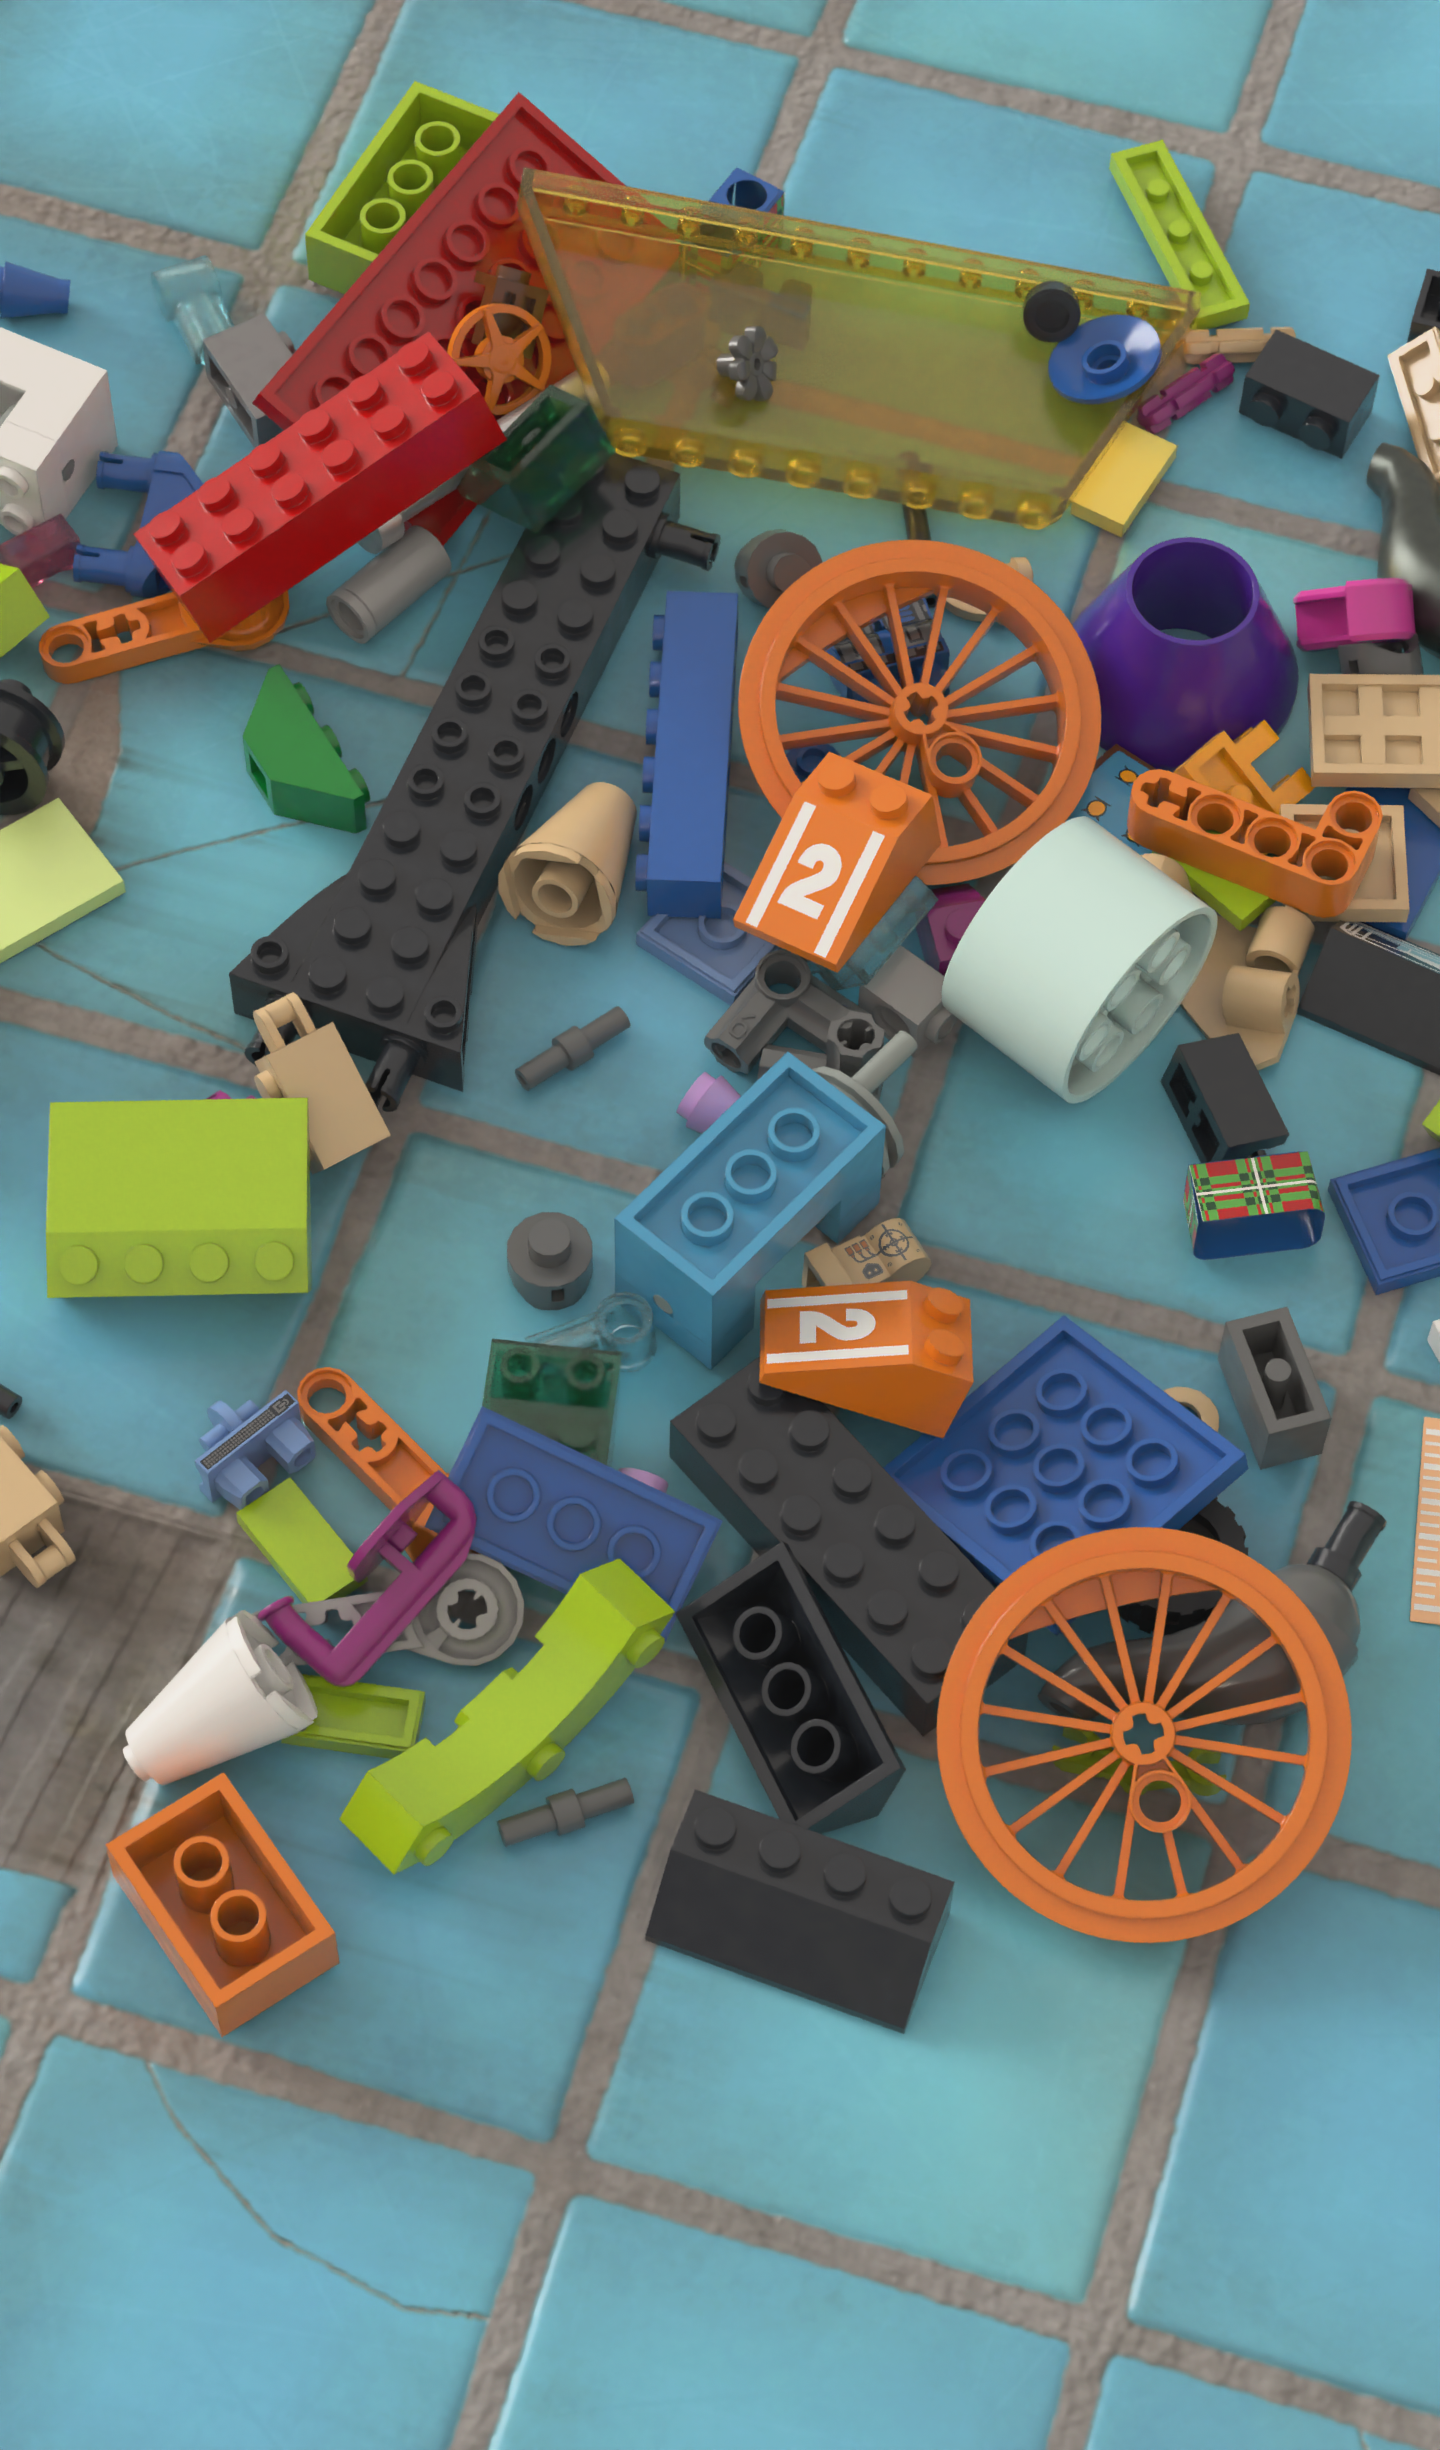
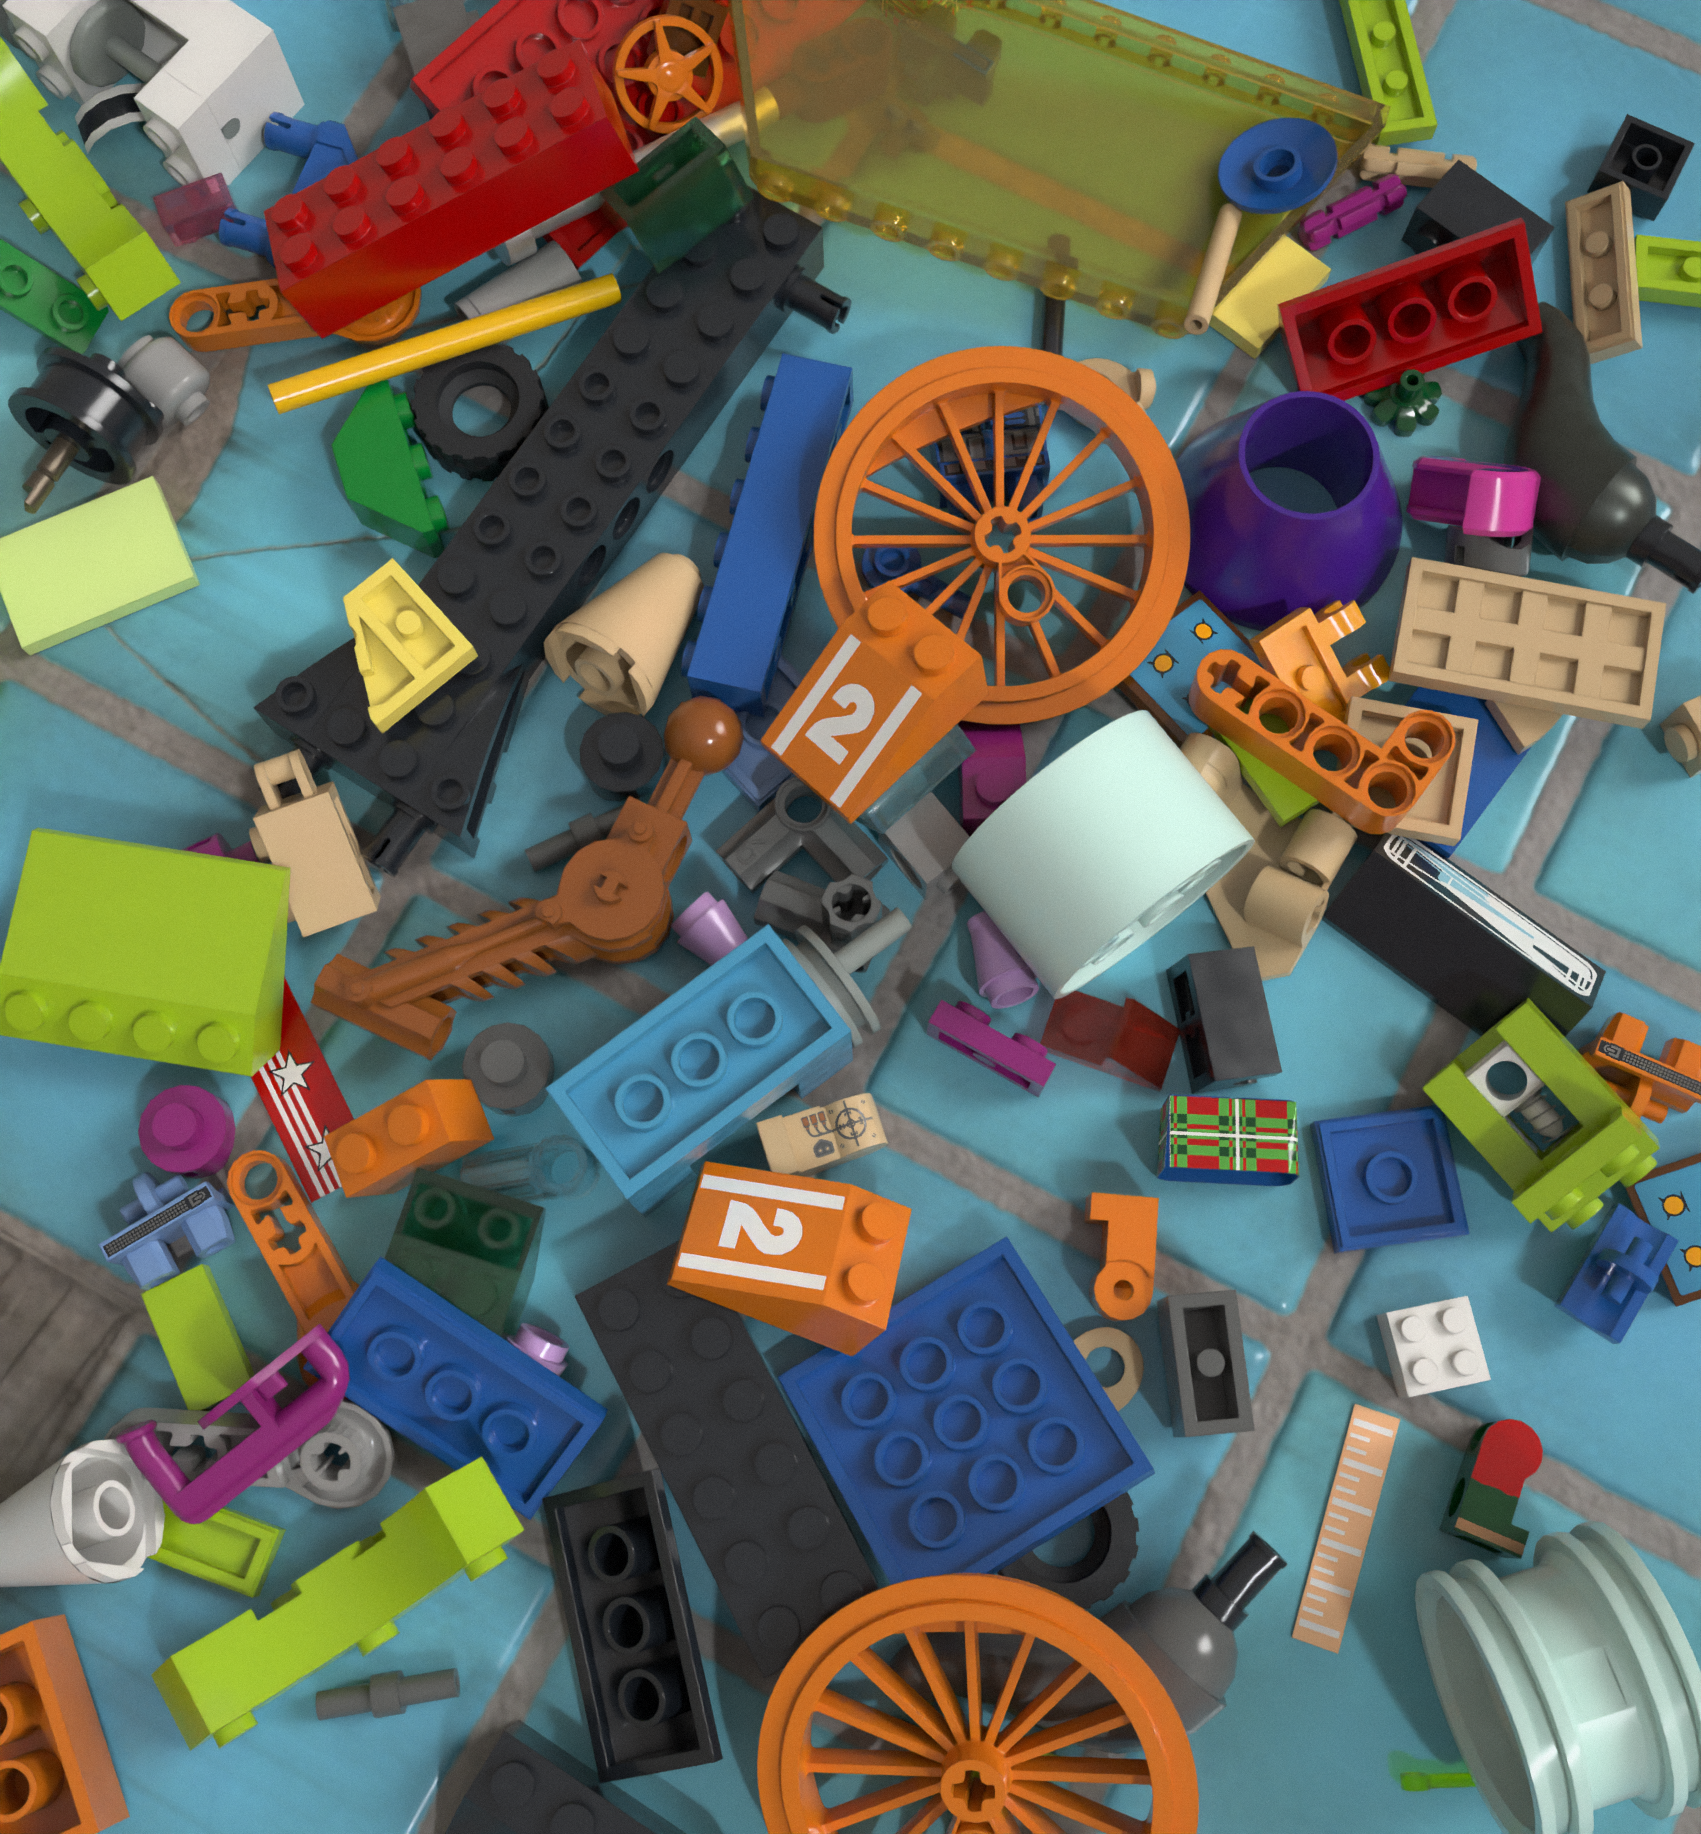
camera: 15 degrees right, 15 degrees up
(66, 699) = (167, 378): none -> light grey head
(246, 1361) = (187, 1131): none -> magenta piece
(334, 629) = (444, 343): none -> yellow piece
(354, 1334) = (303, 1100): none -> red sticker
(370, 885) = (401, 643): none -> light yellow wing
(374, 650) = (447, 380): none -> black tyre
(456, 1326) = (409, 1132): none -> orange brick
(592, 972) = (622, 756): none -> black piece
(612, 1103) = (606, 907): none -> dark orange piece
(750, 364) = (915, 120): dark grey plant -> none
(773, 564) = (901, 339): dark grey piece -> none
(1005, 1094) = (999, 967): none -> lavender cone
(1009, 1164) = (1014, 1058): none -> magenta plate
(1051, 311) = (1234, 105): black tile -> none
(1064, 457) = (1213, 270): none -> tan piece
(1126, 1144) = (1112, 1038): none -> clear red slope
(1179, 1315) = (1128, 1252): none -> orange leg
(1264, 466) = (1413, 314): none -> red slope
(1273, 549) = (1406, 403): none -> dark green plant

